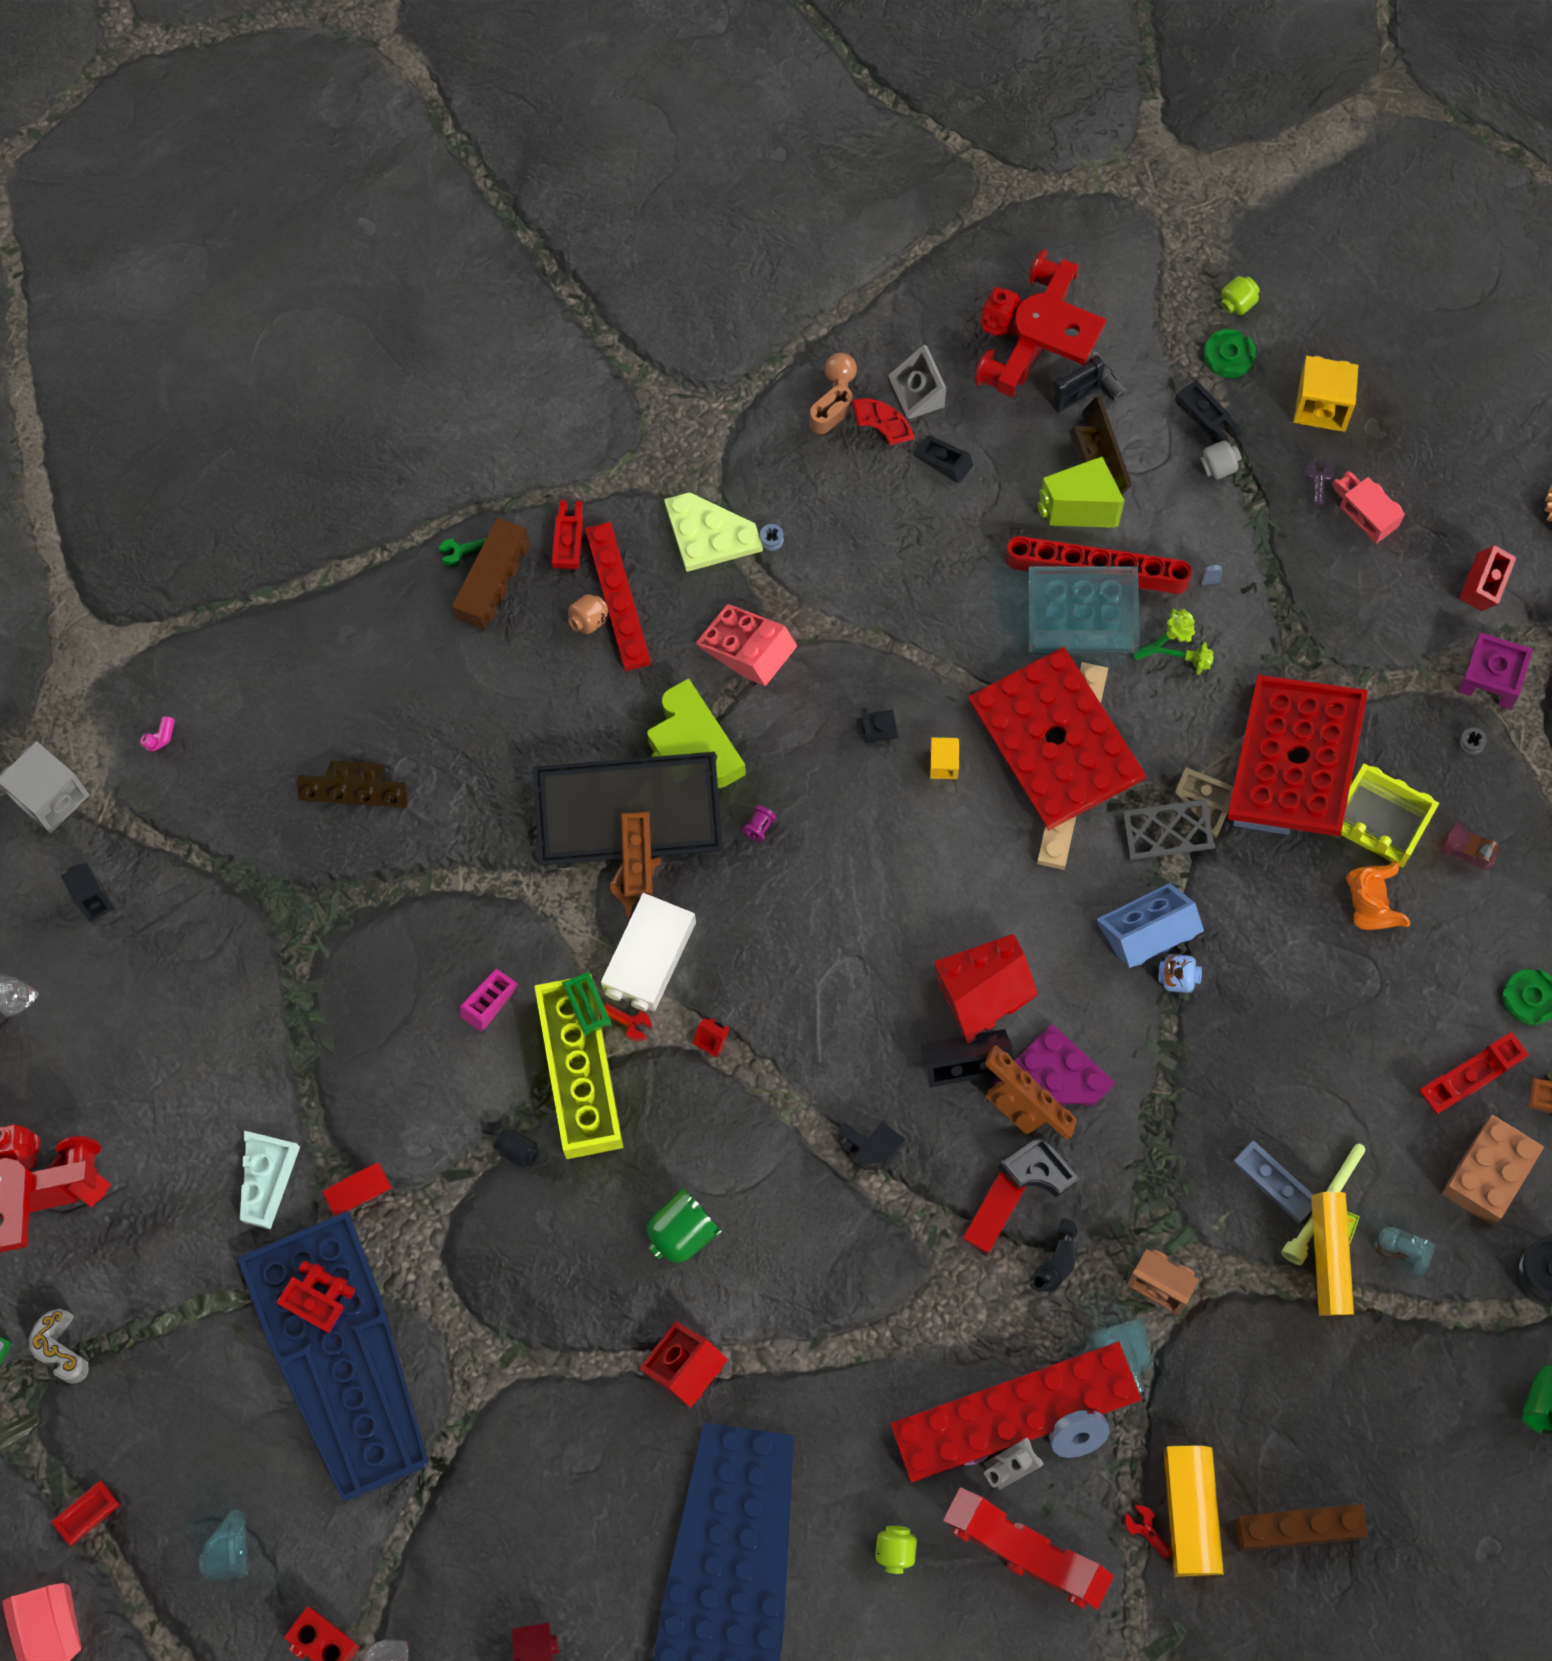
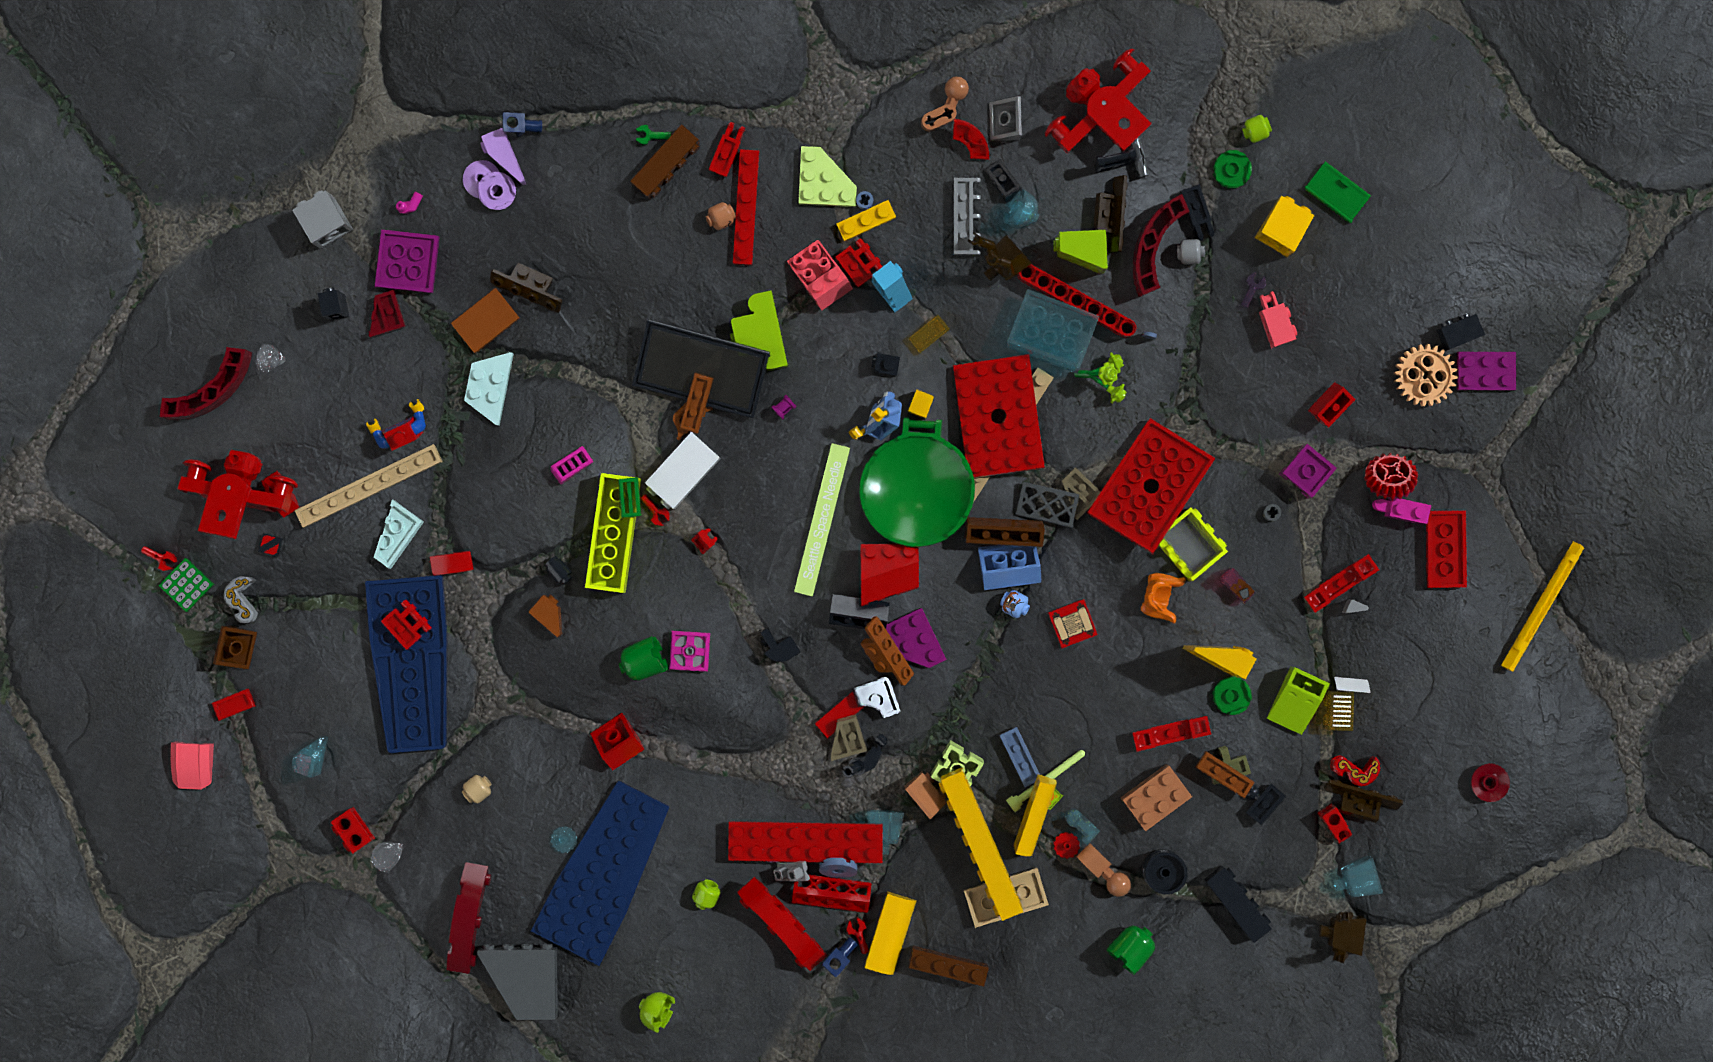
camera: 15 degrees right, 20 degrees up
(66, 1422) = (235, 647): none -> reddish brown slope
(82, 1256) = (270, 545): none -> black tile
(165, 886) = (386, 314): none -> dark red wing
(176, 808) = (407, 261): none -> magenta plate
(204, 1124) = (368, 486): none -> tan plate
(230, 1031) = (402, 432): none -> torso
(250, 686) = (471, 174): none -> lavender dish
(265, 692) = (485, 190): none -> lavender tile
(268, 633) = (500, 150): none -> lavender slope
(283, 587) = (522, 124): none -> dark blue bracket
(308, 849) = (485, 320): none -> dark orange tile
(338, 932) = (489, 385): none -> light aqua wing
(495, 1510) = (476, 789): none -> tan head
(520, 1213) = (548, 614): none -> dark orange slope
(651, 1543) = (564, 839): none -> clear light blue piece
(744, 1196) = (689, 651): none -> dark pink piece
(782, 561) = (866, 220): none -> yellow plate
(798, 622) = (855, 266): none -> red plate
(847, 618) = (892, 285): none -> medium azure wedge
(867, 956) = (822, 519): none -> yellowish green tile
(900, 791) = (882, 420): none -> medium blue torso
(910, 513) = (964, 215): none -> light grey hinge
(920, 670) = (929, 333): none -> clear yellow tile
(983, 478) = (1022, 210): none -> clear light blue cylinder
(983, 861) = (917, 487): none -> green dish
(984, 541) = (1003, 258): none -> dark brown torso
(1018, 1241) = (847, 738): none -> dark tan wing
(1085, 1485) = (831, 896): none -> red fence
(1125, 880) = (1004, 531): none -> reddish brown brick
(1134, 1570) = (841, 956): none -> dark blue bracket
(1165, 487) = (1148, 242): none -> dark red brick
(1209, 1215) = (953, 756): none -> yellowish green brick
(1269, 975) = (1072, 623): none -> tile
(1277, 1319) = (981, 844): none -> yellow brick
(1341, 1394) = (1028, 888): none -> tan plate
(1372, 341) = (1341, 197): none -> green door
(1395, 1288) = (1066, 845): none -> red piece
(1454, 1298) = (1117, 883): none -> nougat beam
(1499, 935) = (1234, 660): none -> yellow slope

